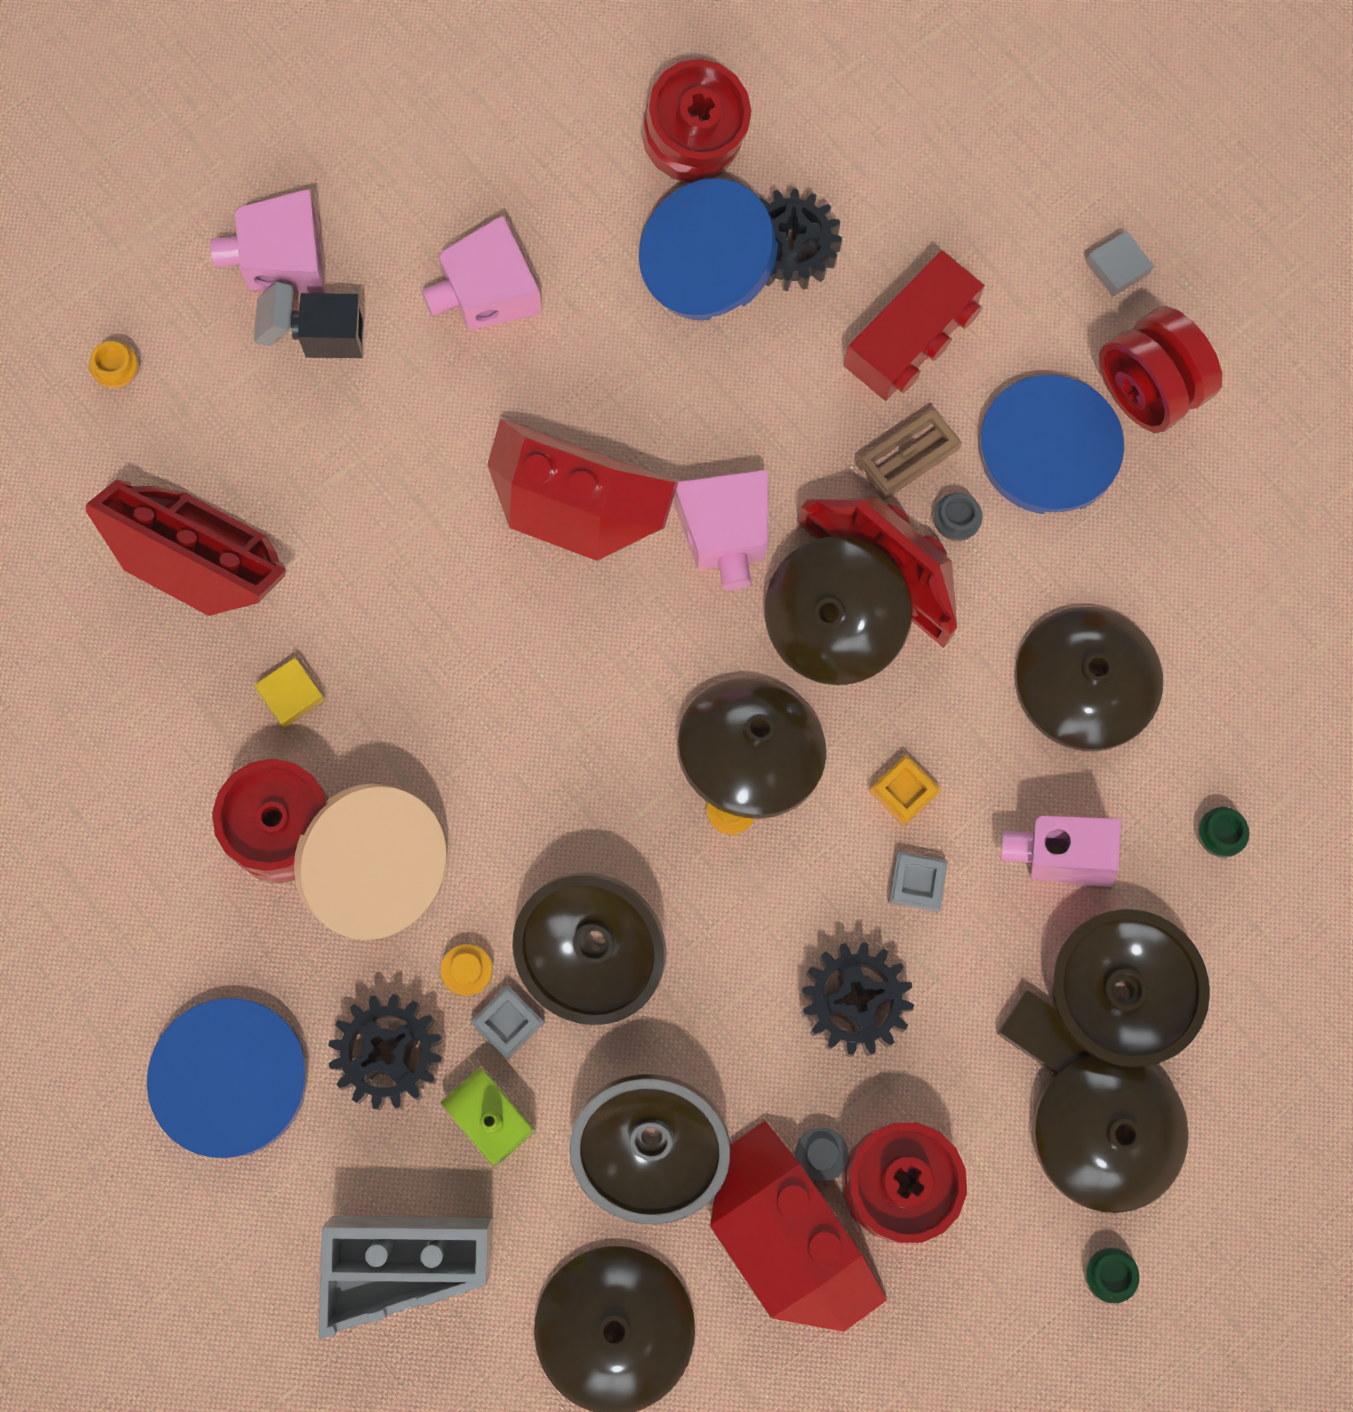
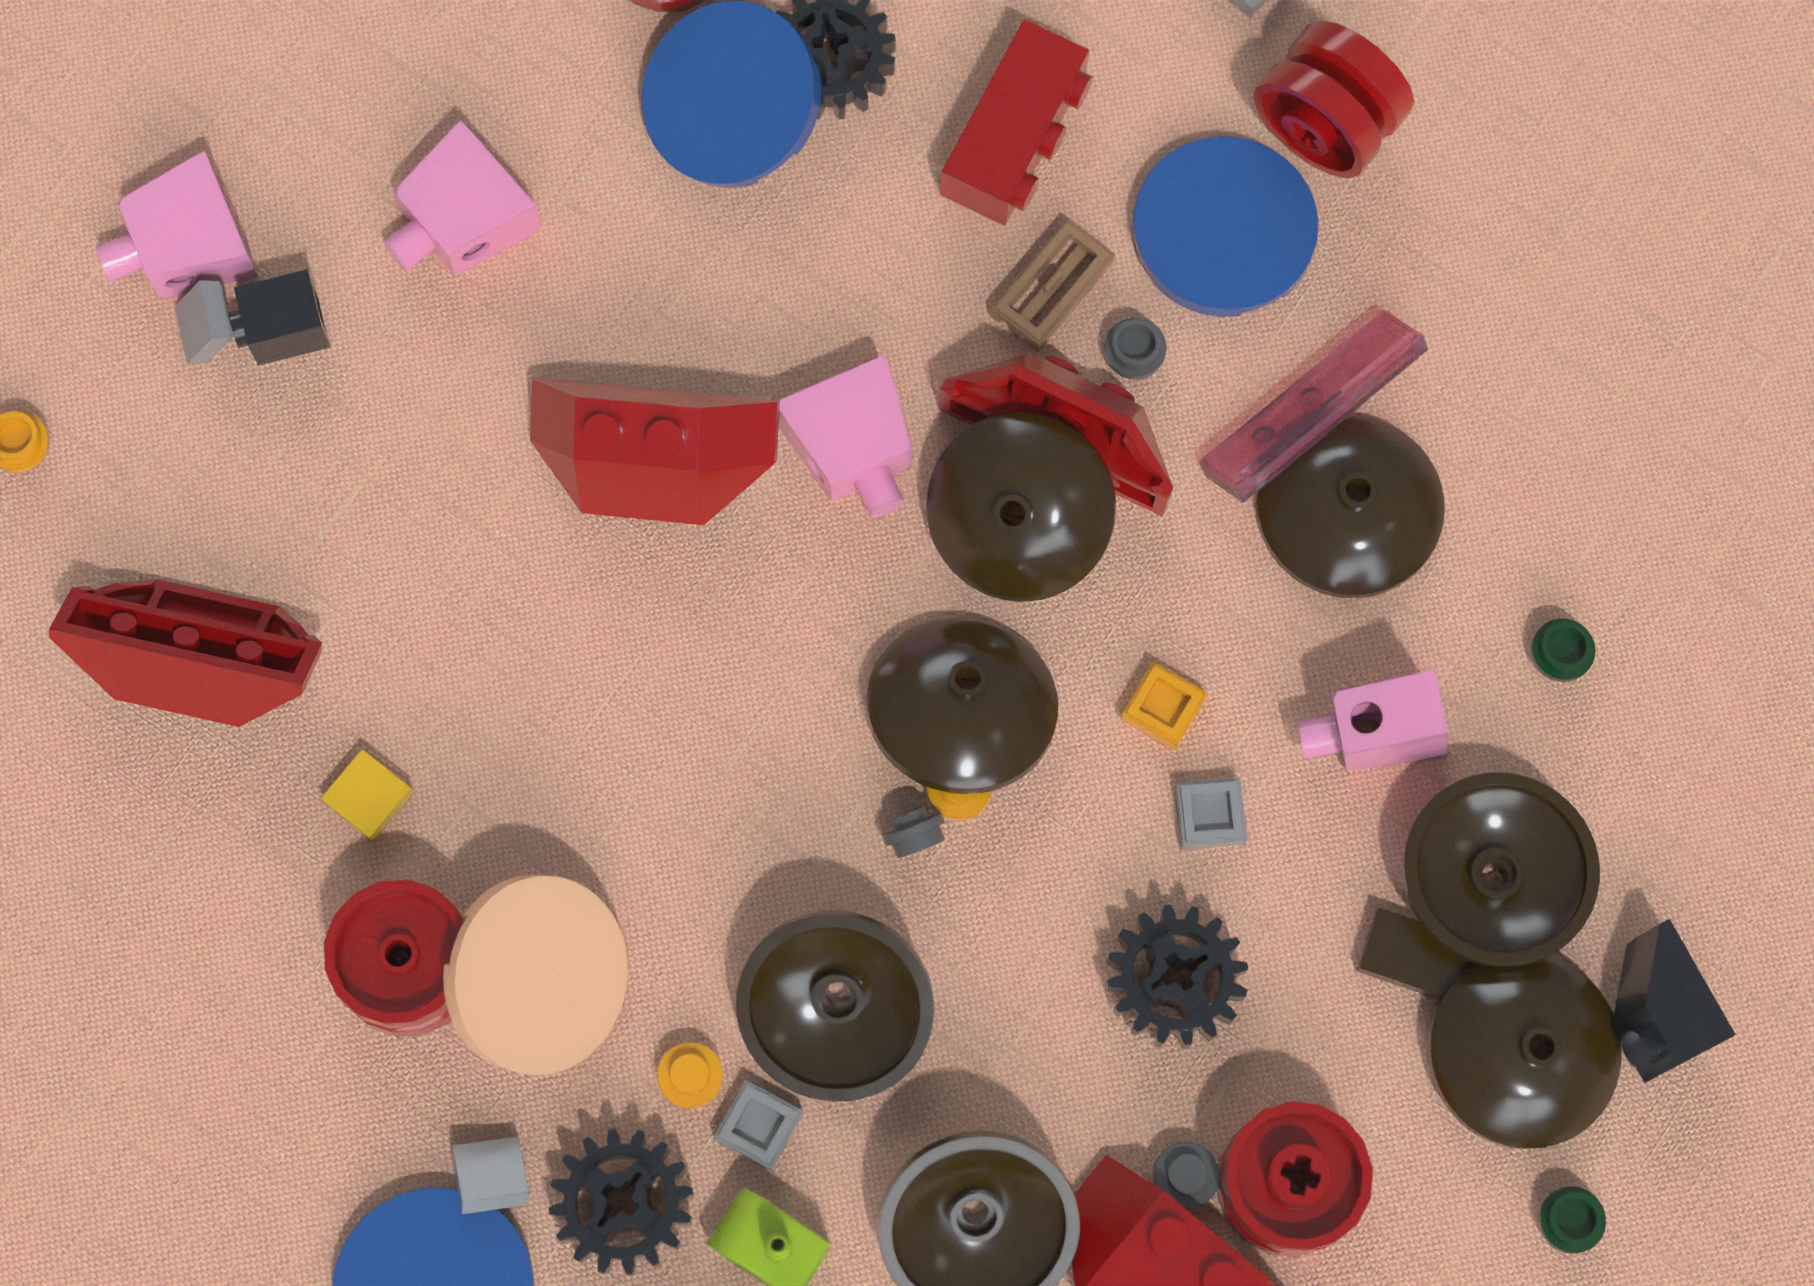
camera: 15 degrees left, 0 degrees up
(294, 1003) = (490, 1175): none -> light grey tile
(688, 833) = (914, 831): none -> dark grey plate
(1081, 595) = (1313, 406): none -> clear pink tile
(1230, 1129) = (1665, 1005): none -> black slope

